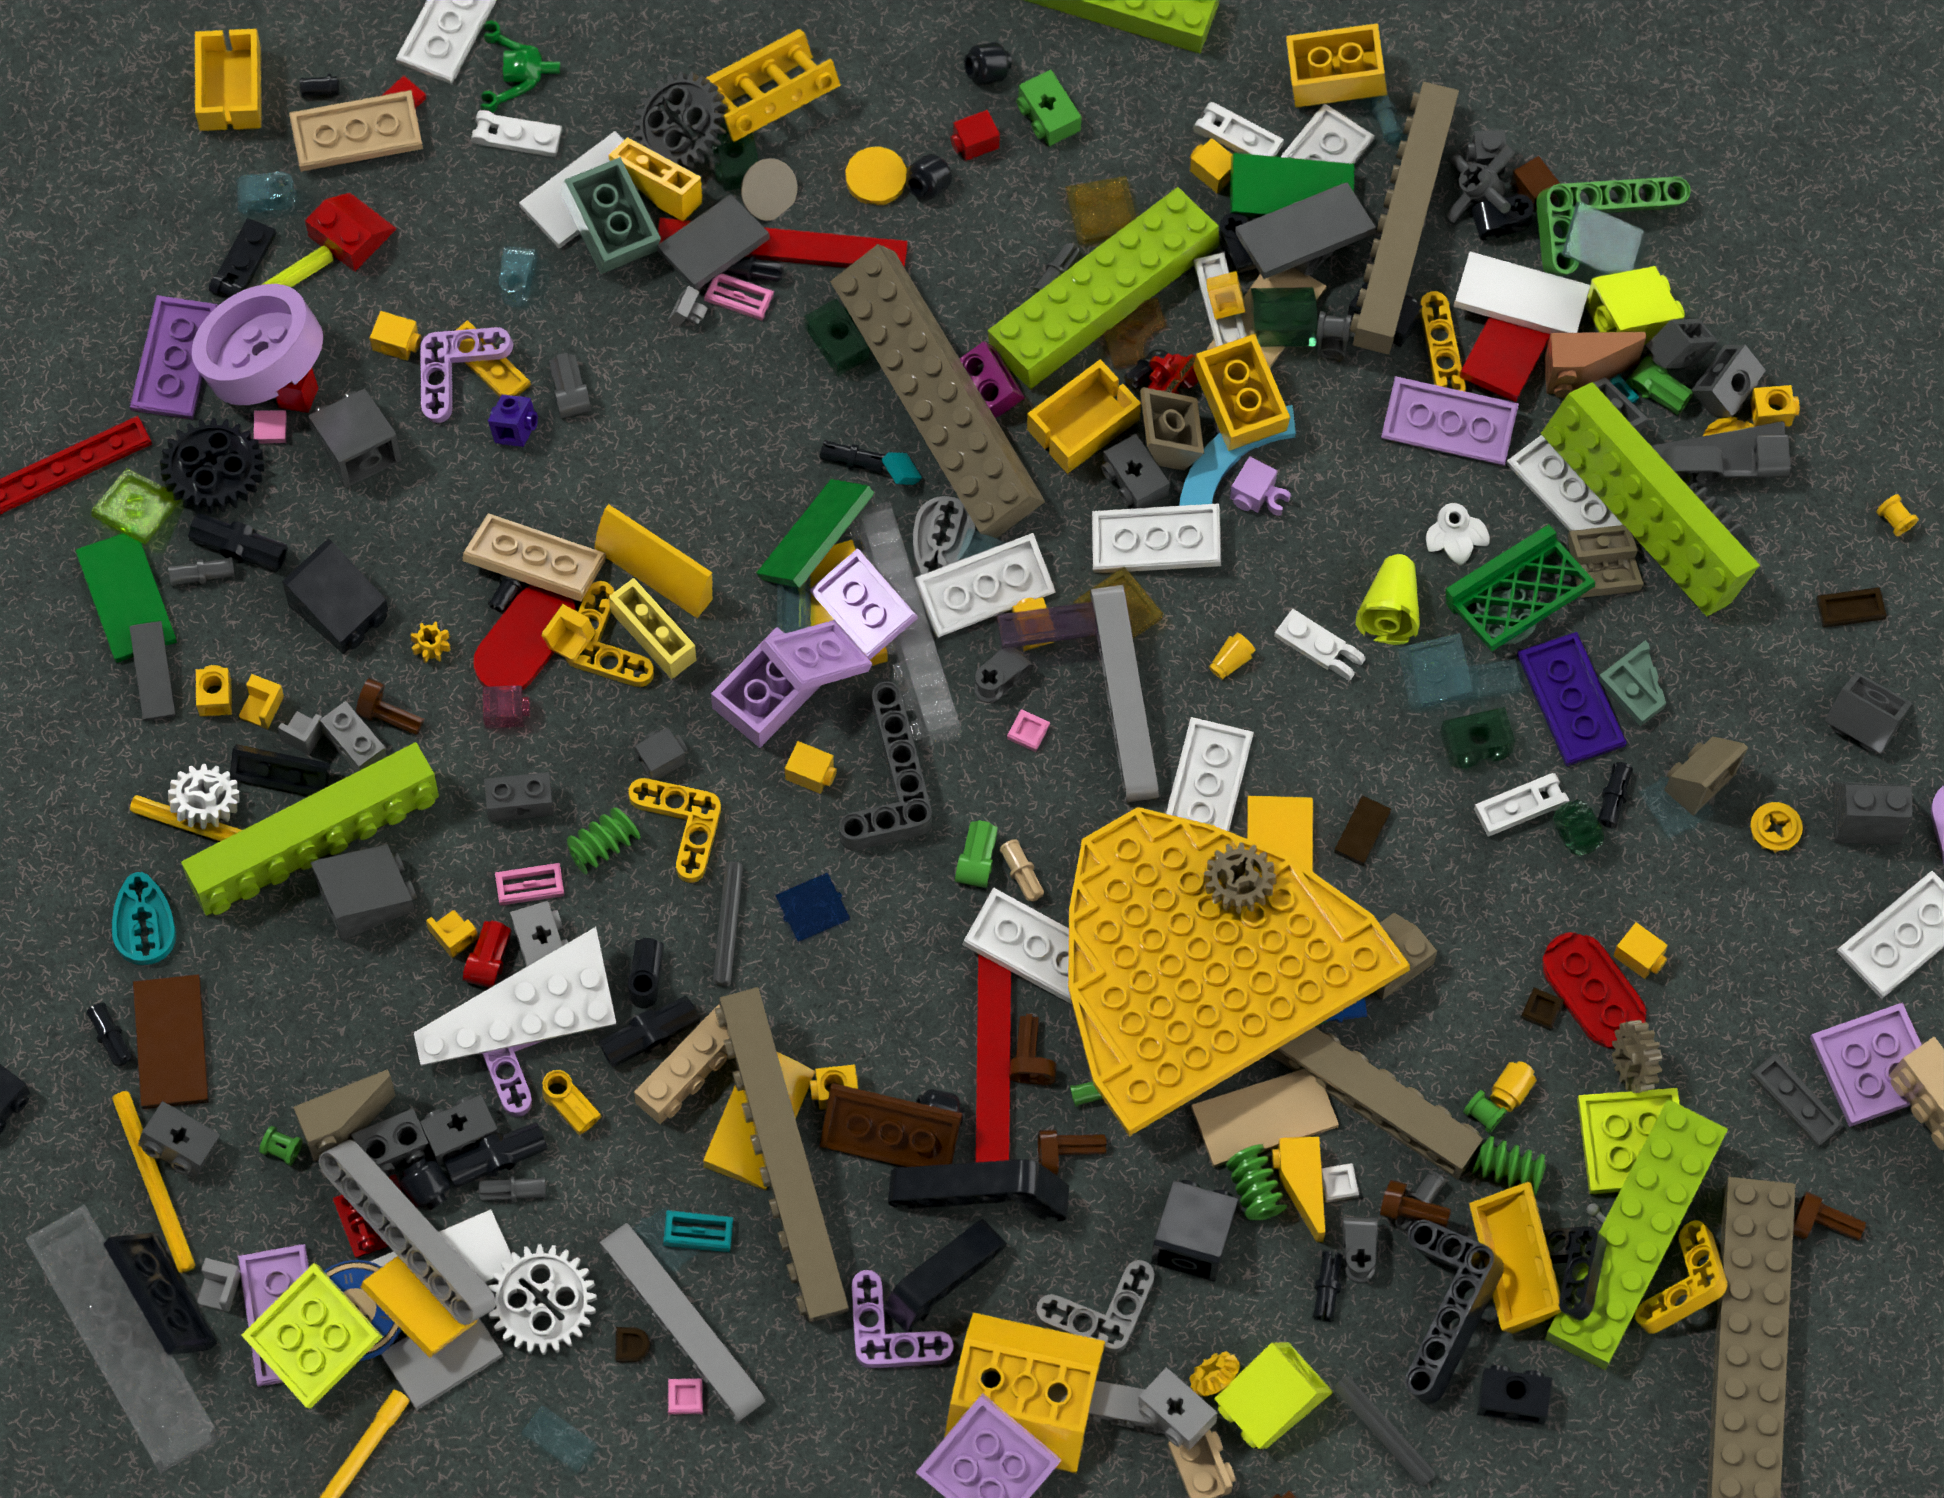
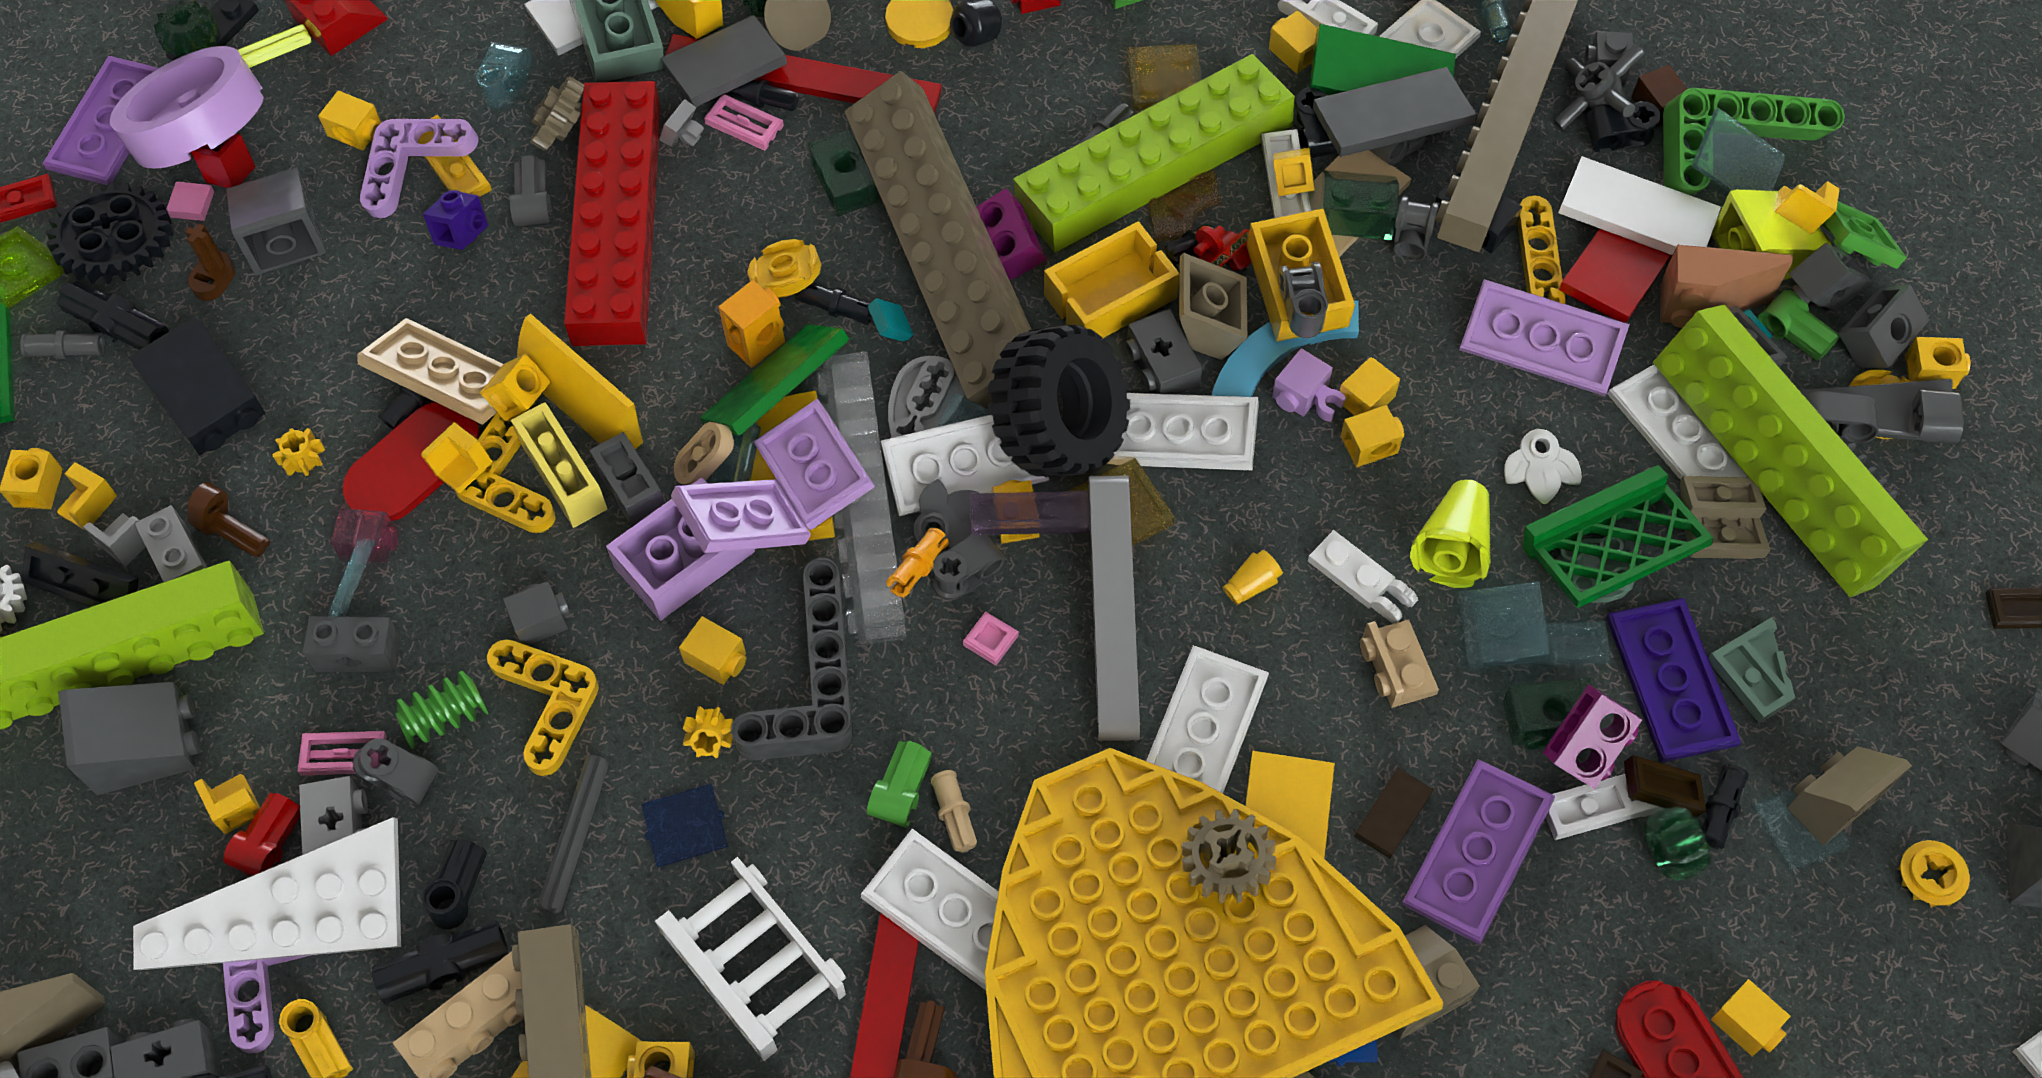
camera: 10 degrees right, 5 degrees down
(219, 265) = (186, 29): none -> clear green gear
(309, 484) = (211, 264): none -> reddish brown piece
(508, 744) = (351, 578): none -> clear light blue tile
(578, 892) = (400, 772): none -> dark grey piece
(579, 311) = (557, 113): none -> dark tan gear
(603, 567) = (515, 387): none -> yellow brick
(647, 396) = (613, 215): none -> red brick
(712, 635) = (627, 478): none -> dark grey brick
(773, 602) = (703, 453): none -> tan plate
(789, 487) = (752, 323): none -> light orange brick
(803, 432) = (786, 267): none -> yellow tile
(819, 832) = (708, 732): none -> yellow gear
(879, 1030) = (736, 996): none -> white fence
(963, 676) = (917, 562): none -> light orange pin
(980, 630) = (947, 510): none -> dark grey plate
(1059, 530) = (1027, 405): none -> black tyre
(1247, 412) = (1304, 292): none -> dark grey piece
(1309, 485) = (1369, 387): none -> yellow panel
(1316, 524) = (1372, 435): none -> yellow brick
(1355, 711) = (1399, 663): none -> tan bracket
(1429, 851) = (1478, 851): none -> medium lavender tile
(1500, 751) = (1583, 731): none -> brick
(1567, 784) = (1664, 785): none -> dark brown tile
(1658, 286) = (1807, 207): none -> yellow panel
(1705, 297) = (1863, 234): none -> bright green plate

